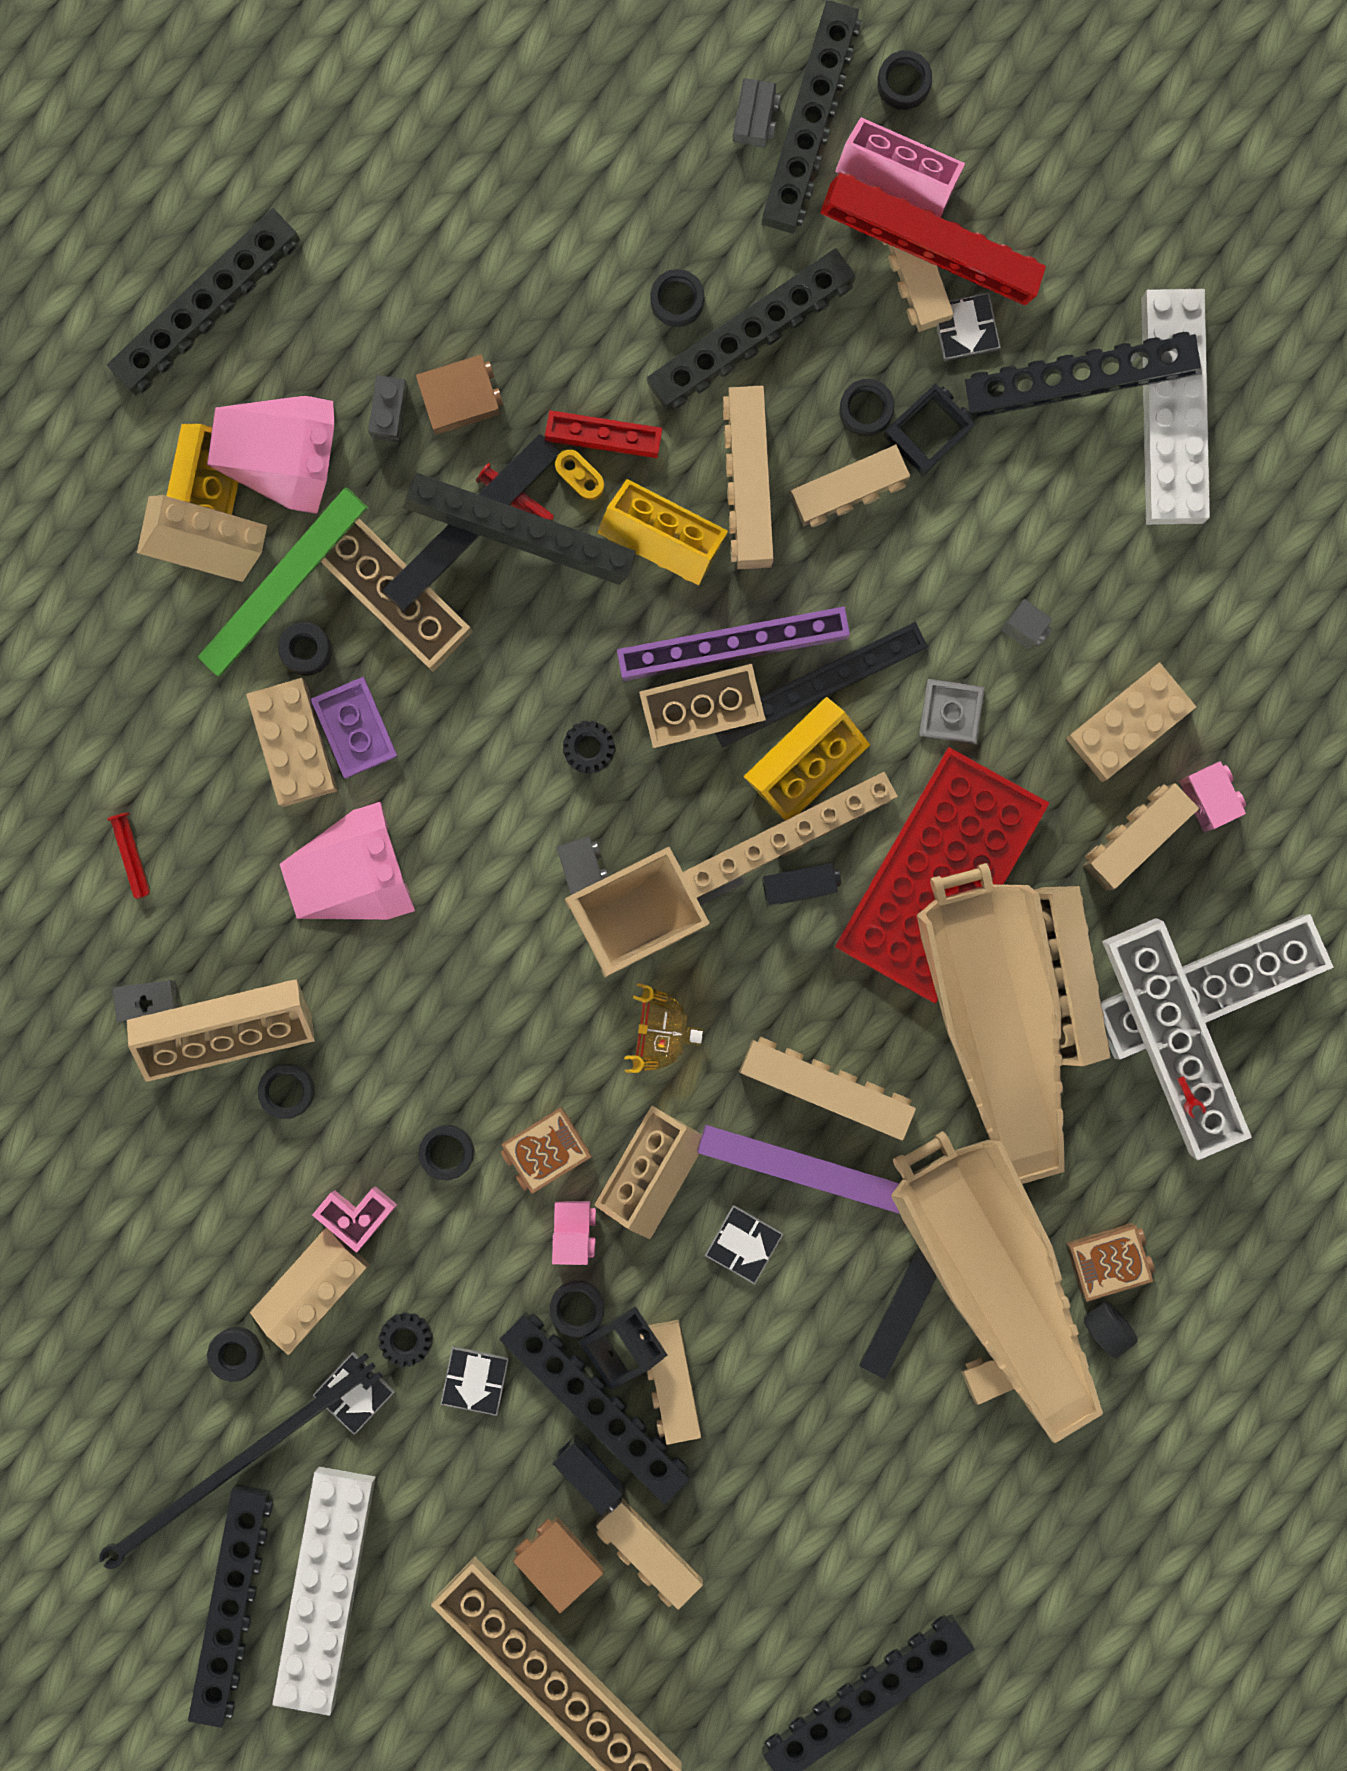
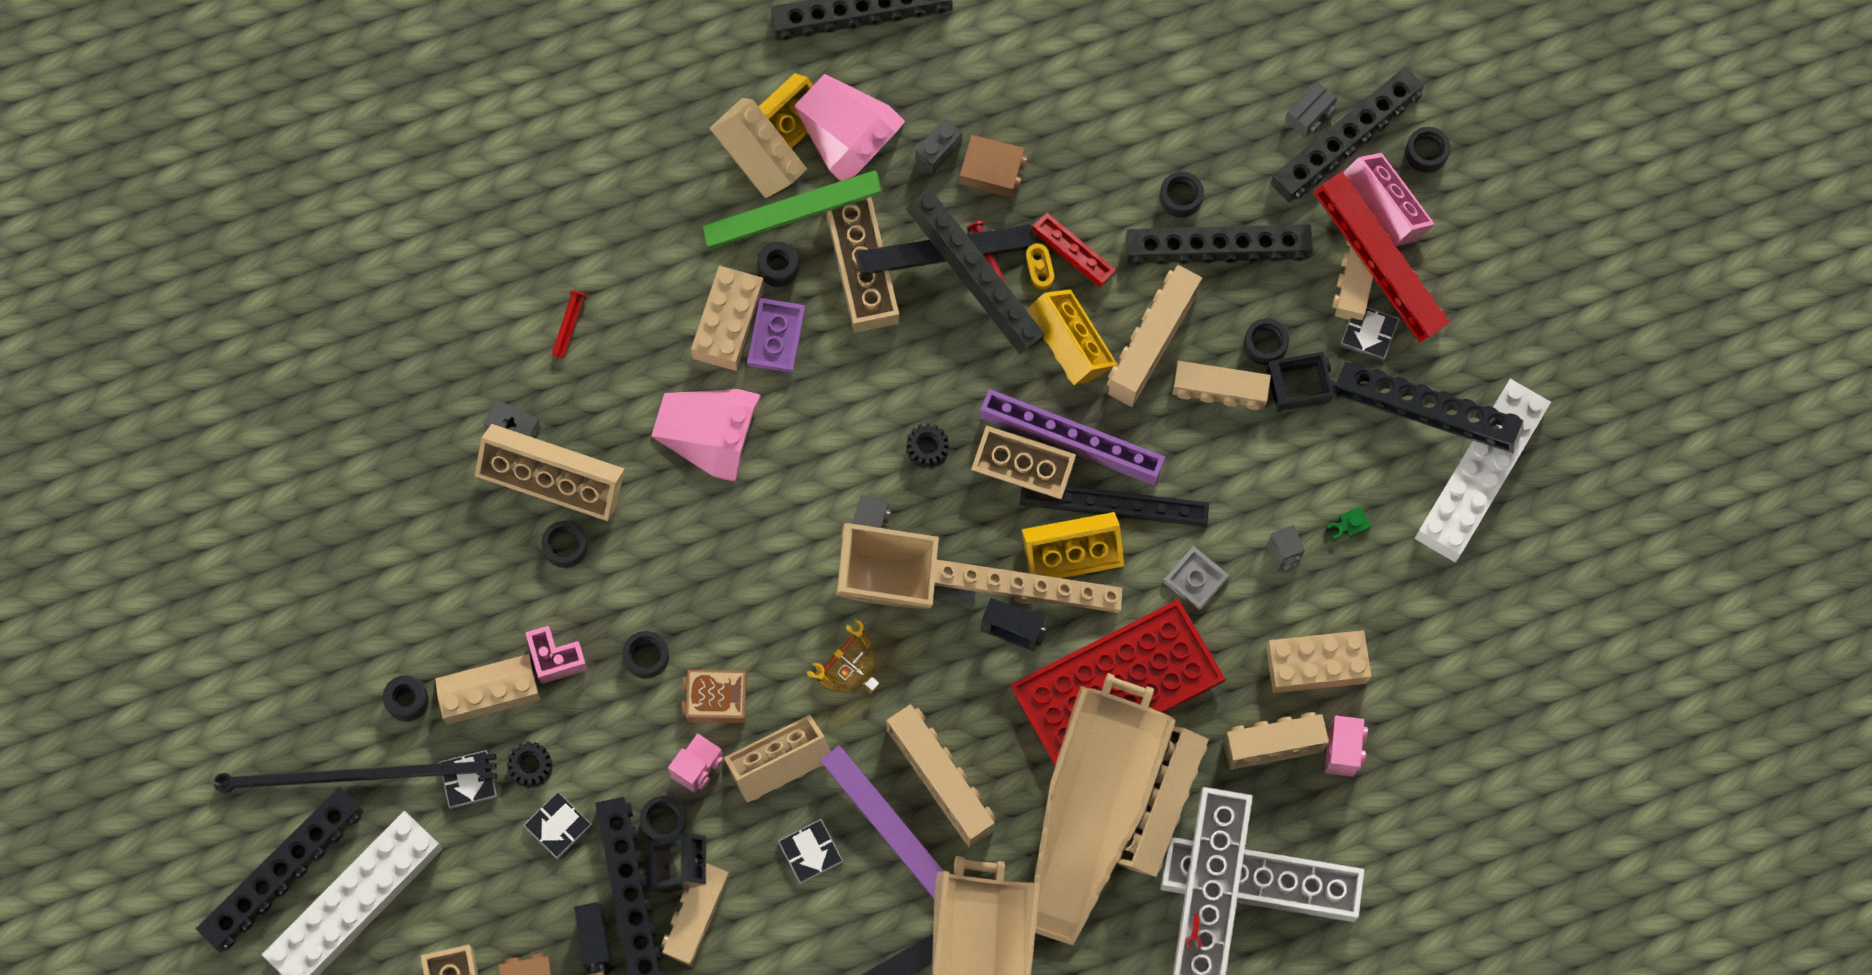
camera: 25 degrees right, 15 degrees down
(1074, 550) = (1352, 523): none -> green plate

